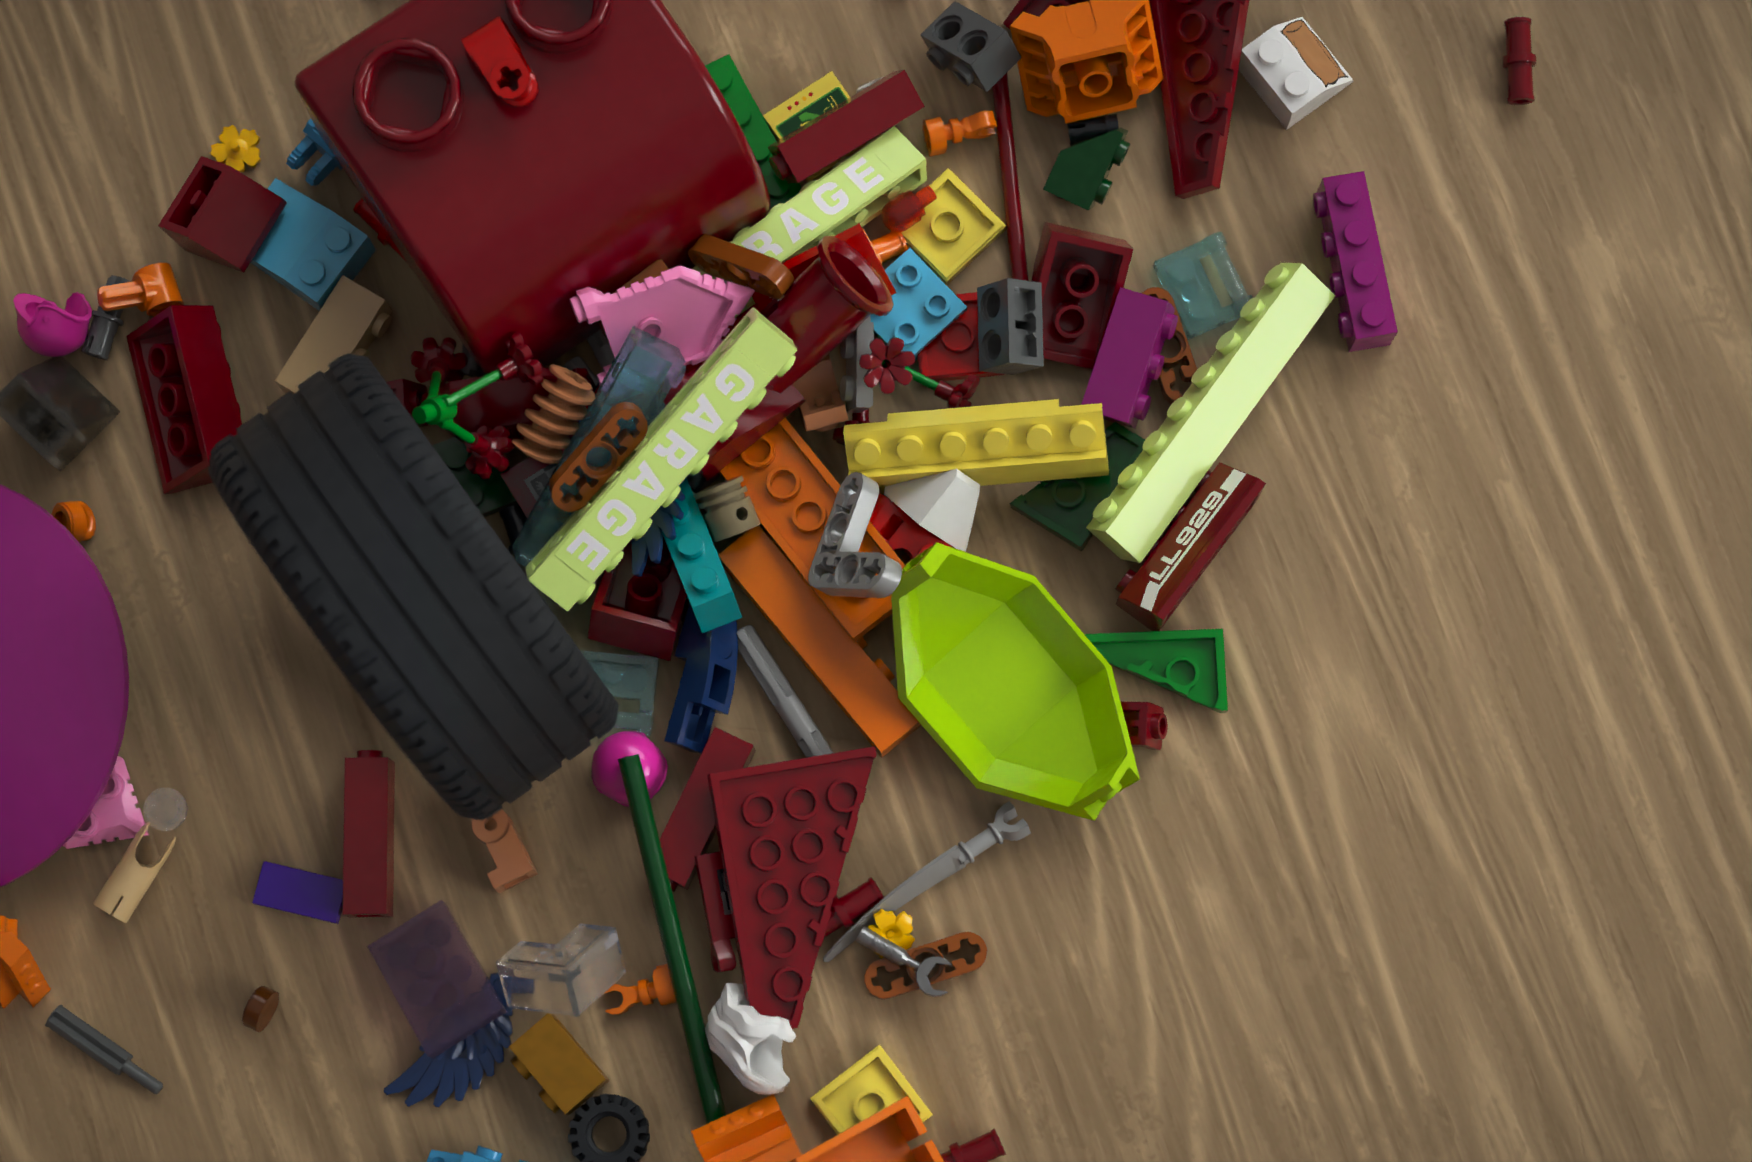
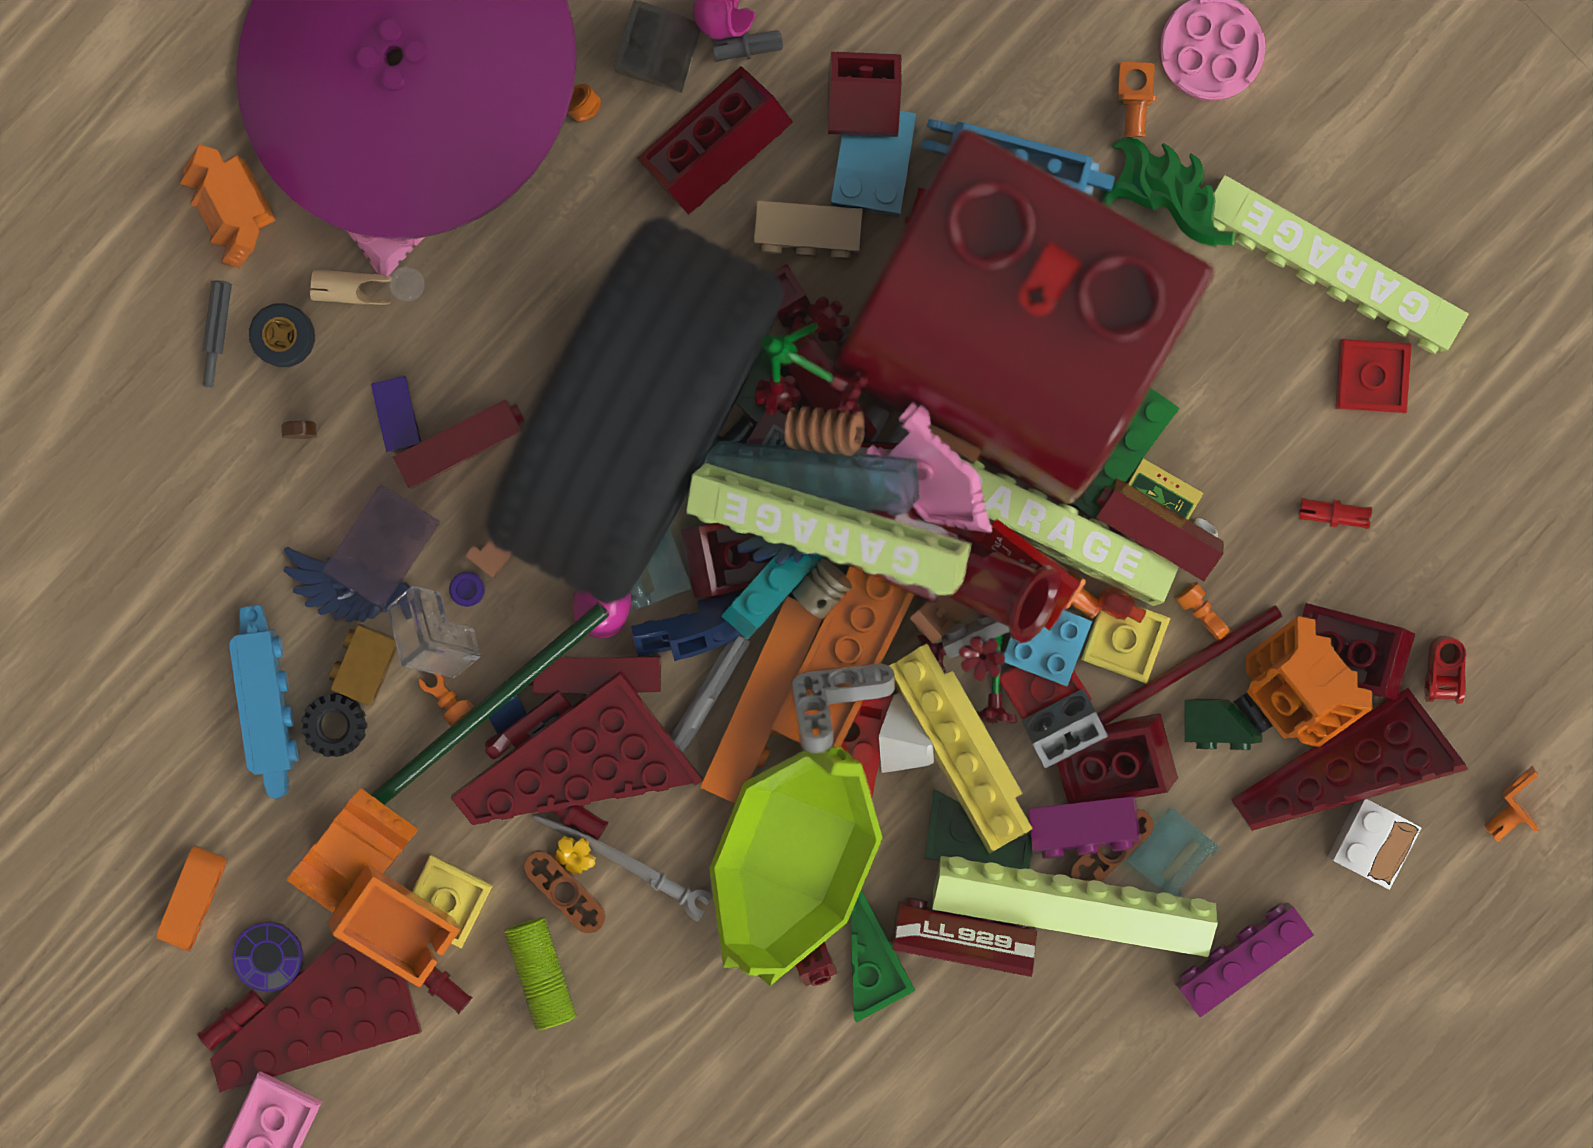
camera: 60 degrees right, 10 degrees up
(130, 973) = (270, 335): none -> black wheel
(150, 290) = (781, 67): orange axle -> none
(237, 148) = (924, 72): yellow plant -> none
(534, 909) = (467, 589): none -> dark purple tile
(569, 474) = (822, 477): dark orange beam -> none
(694, 931) = (508, 714): none -> dark blue slope
(741, 266) = (1003, 513): dark orange beam -> none
(749, 1041) = (445, 794): white hair -> none
(900, 957) = (560, 872): flat silver piece -> none
(970, 47) = (1269, 592): dark grey brick -> none
(989, 1032) = (536, 965): none -> lime piece
(1519, 60) = (1464, 1008): dark red pin -> none

